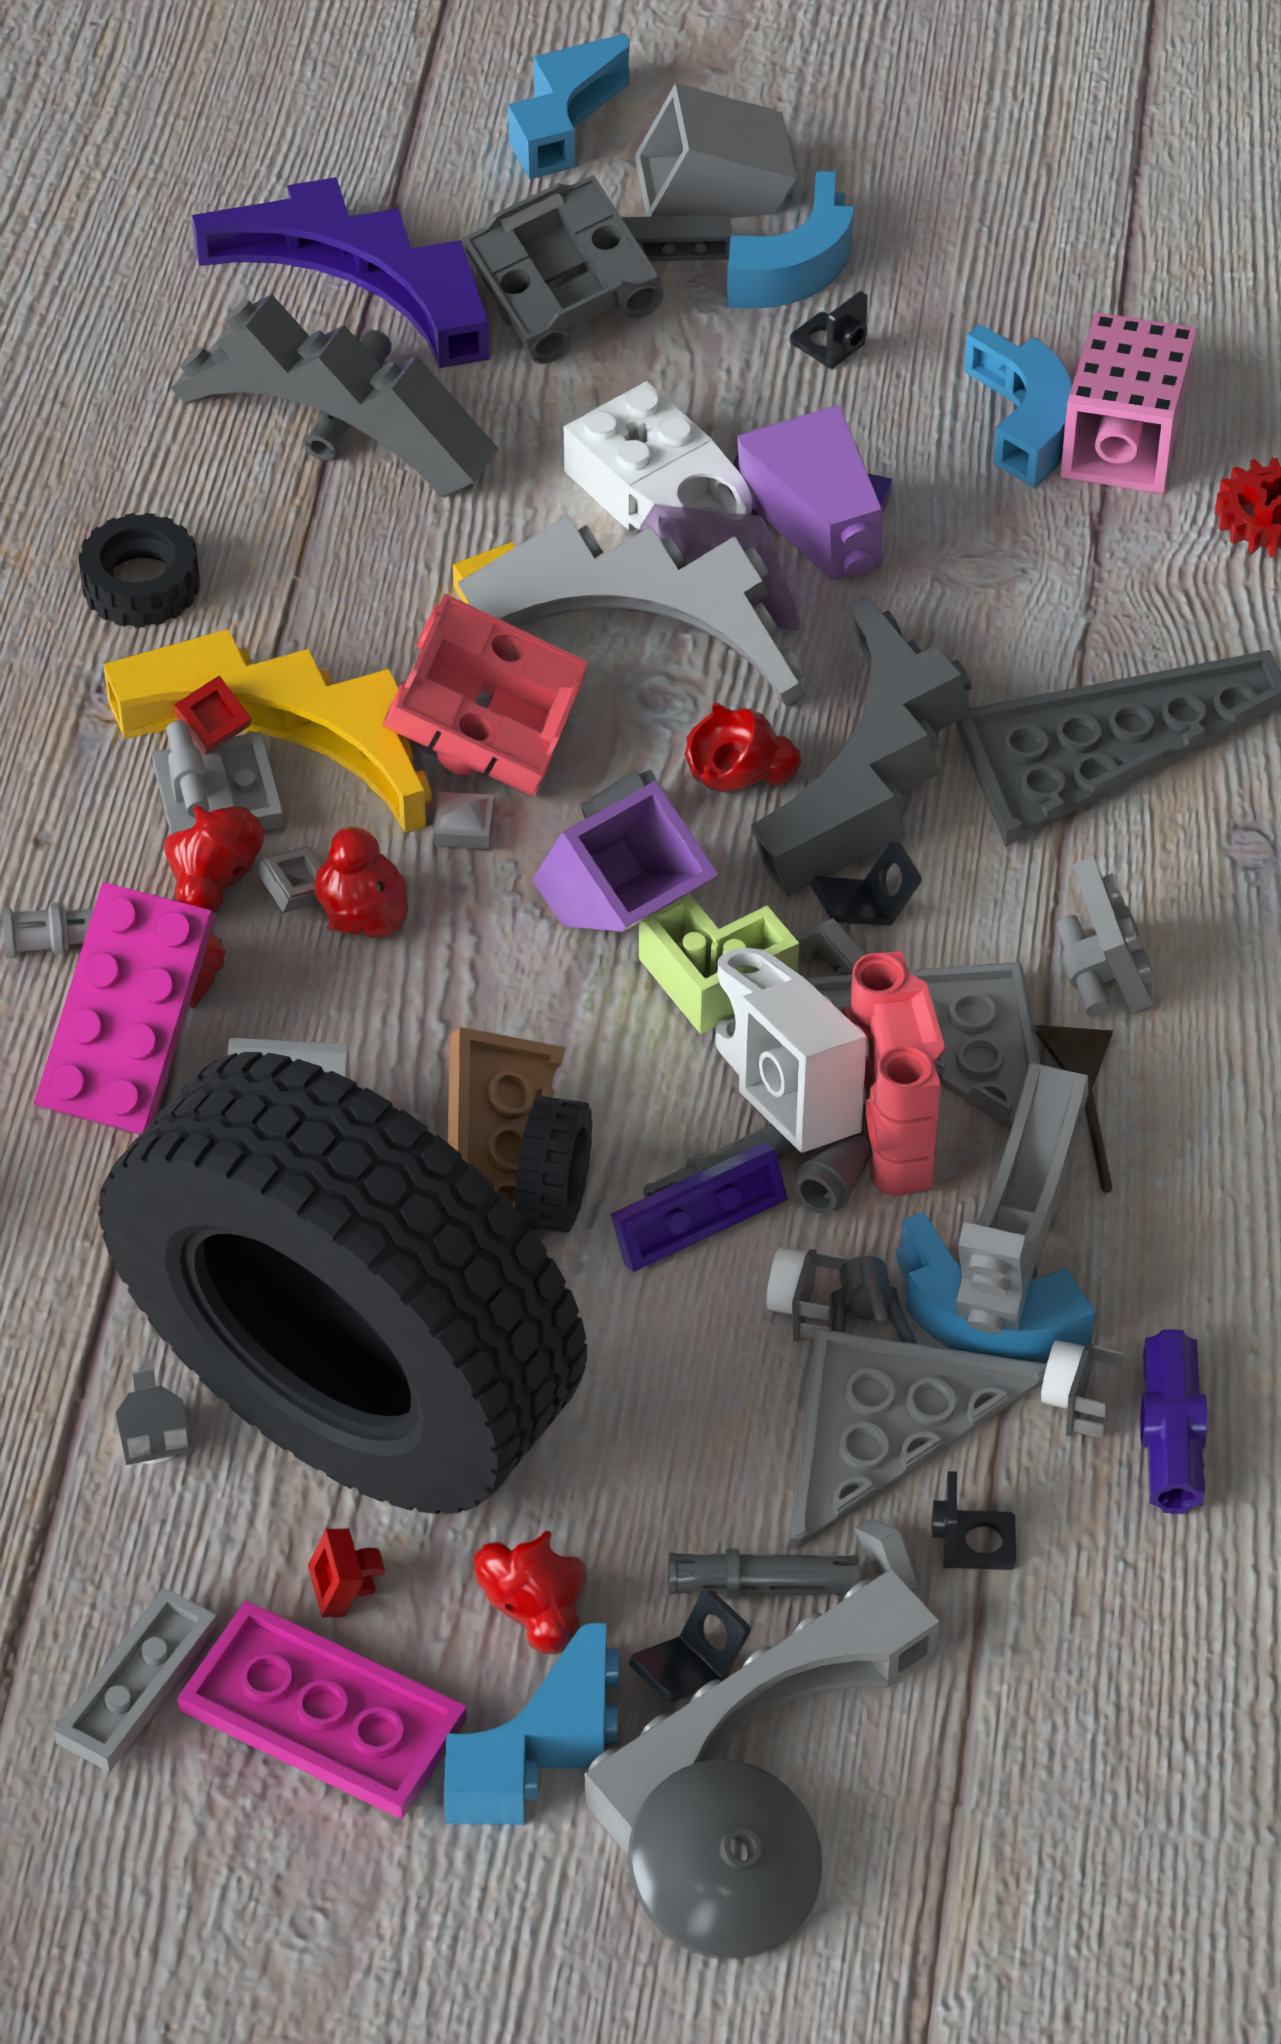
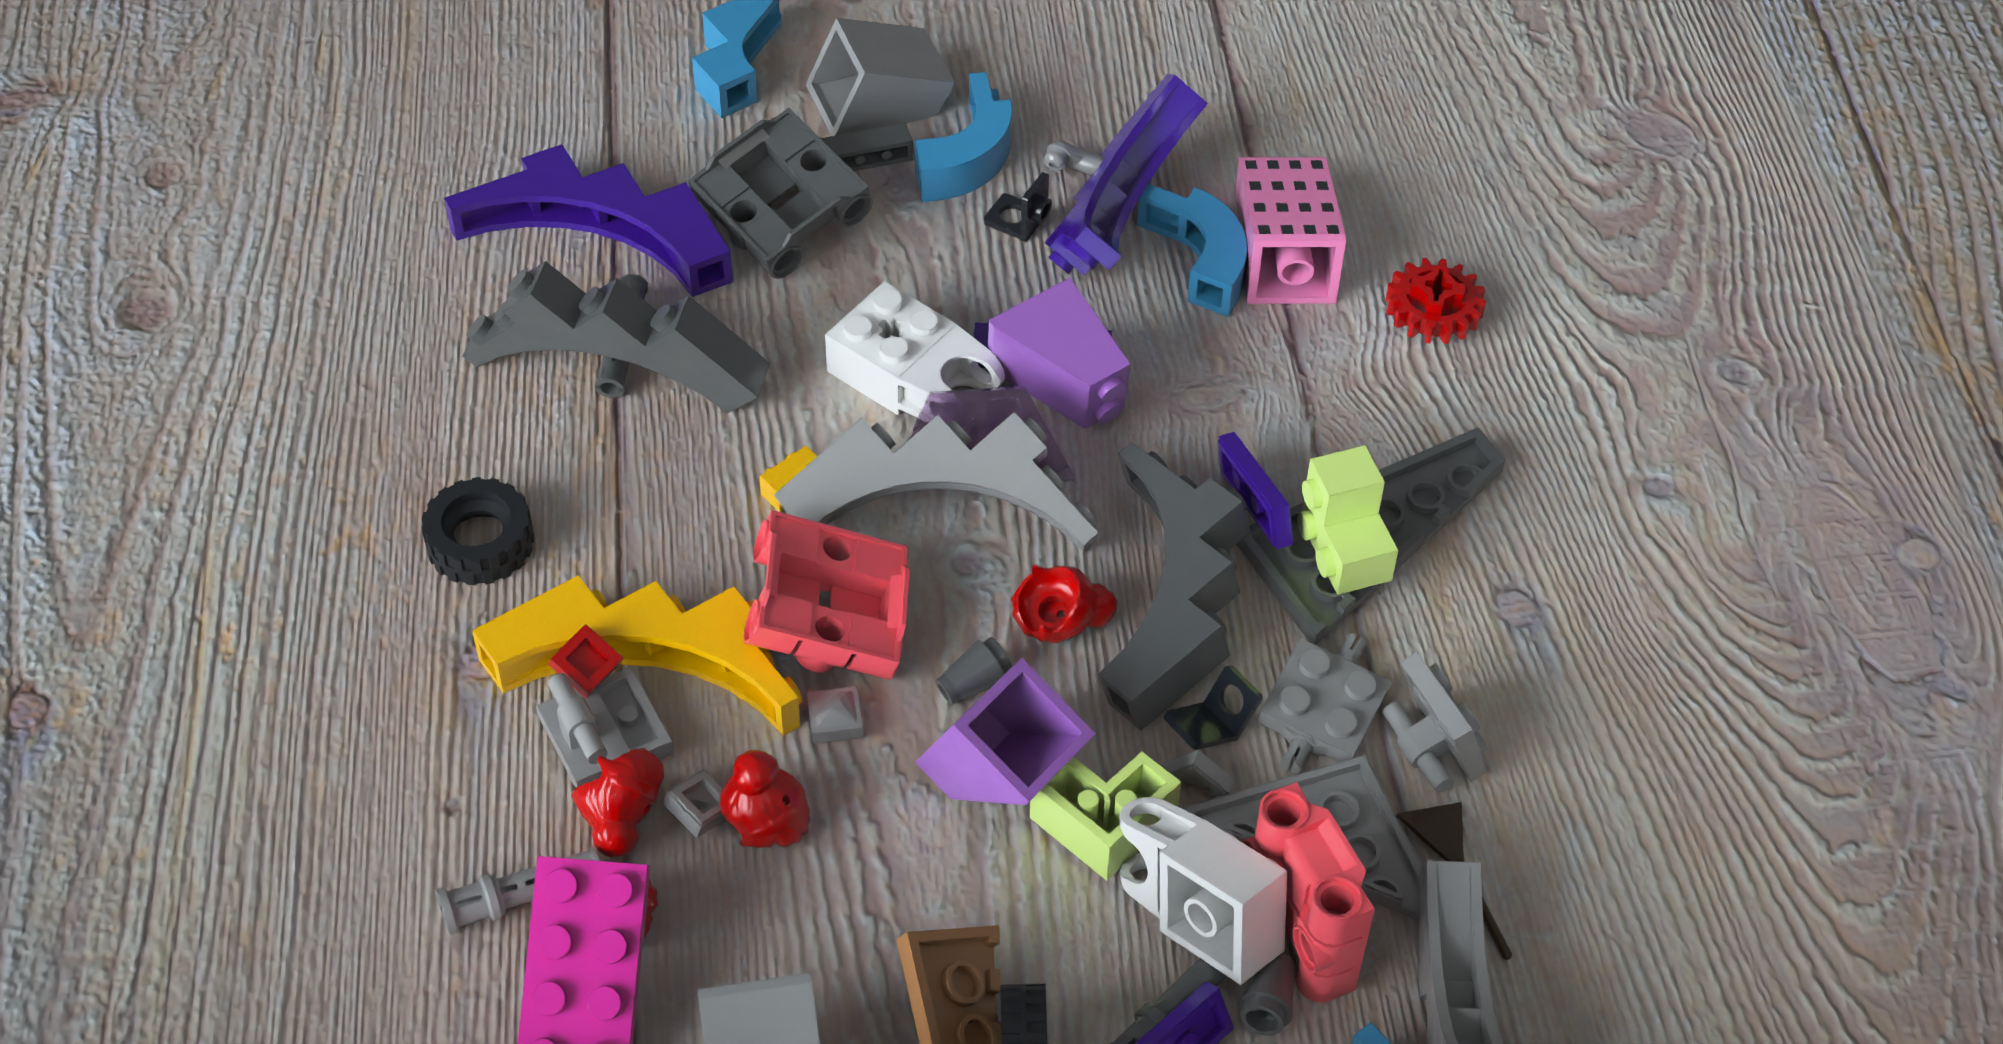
camera: 15 degrees left, 0 degrees up
(901, 278) = (1064, 154): none -> light grey arm
(953, 311) = (1134, 155): none -> dark purple arch
(987, 670) = (1261, 495): none -> dark purple tile
(995, 902) = (1323, 702): none -> light grey plate
(1071, 714) = (1345, 521): none -> yellowish green brick

